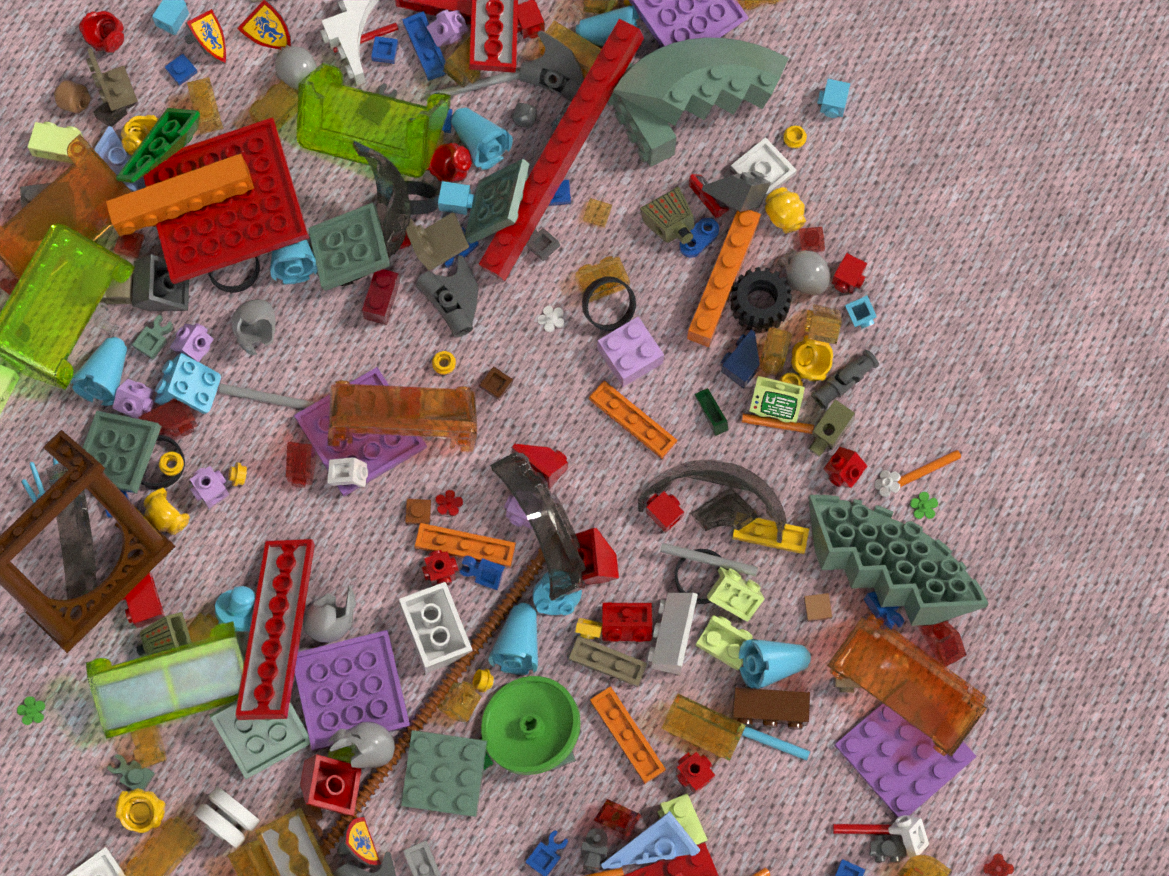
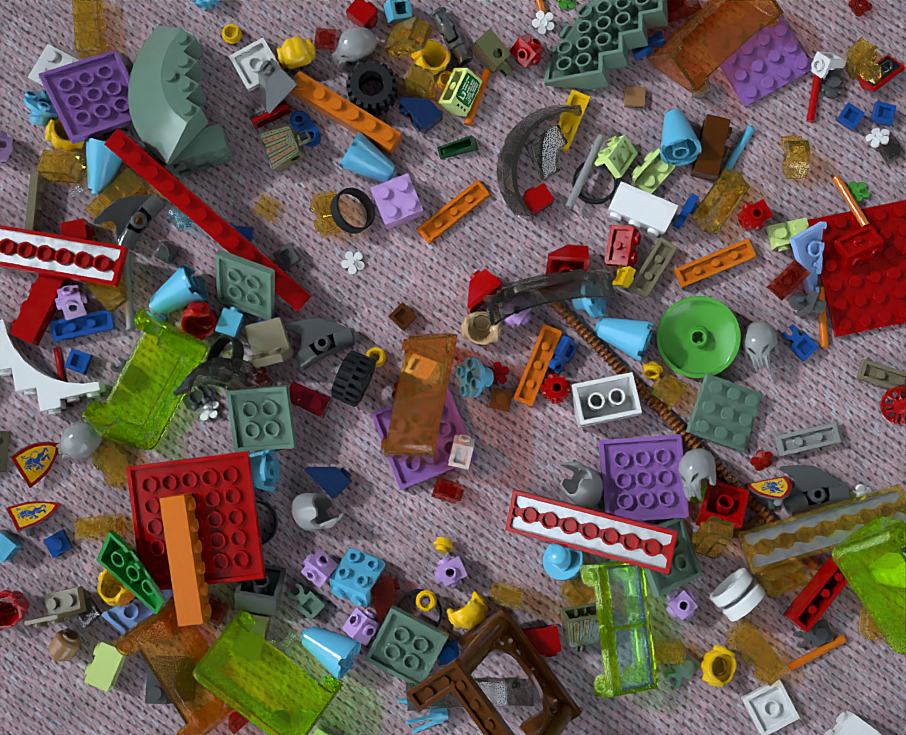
camera: 80 degrees left, 10 degrees up
(190, 550) = (506, 594): none -> clear yellow brick
(214, 760) = (673, 602): none -> lavender brick
(264, 397) = (377, 512): light grey bar -> none
(290, 776) = (712, 537): none -> clear yellow brick
(294, 337) = (330, 479): none -> dark blue slope
(353, 194) = (208, 410): none -> white plant
(366, 180) = (200, 395): none -> dark grey piece
(395, 829) = (762, 459): none -> red plant
(411, 337) = (353, 378): none -> black tyre
(437, 474) = (473, 377): none -> medium azure plate
(486, 477) = (478, 328): none -> tan hair
(539, 796) = (757, 338): none -> light grey helmet
(672, 309) = (367, 160): none -> medium azure cone
(685, 688) = (688, 208): none -> blue plate
(780, 811) = (796, 157): none -> clear yellow brick

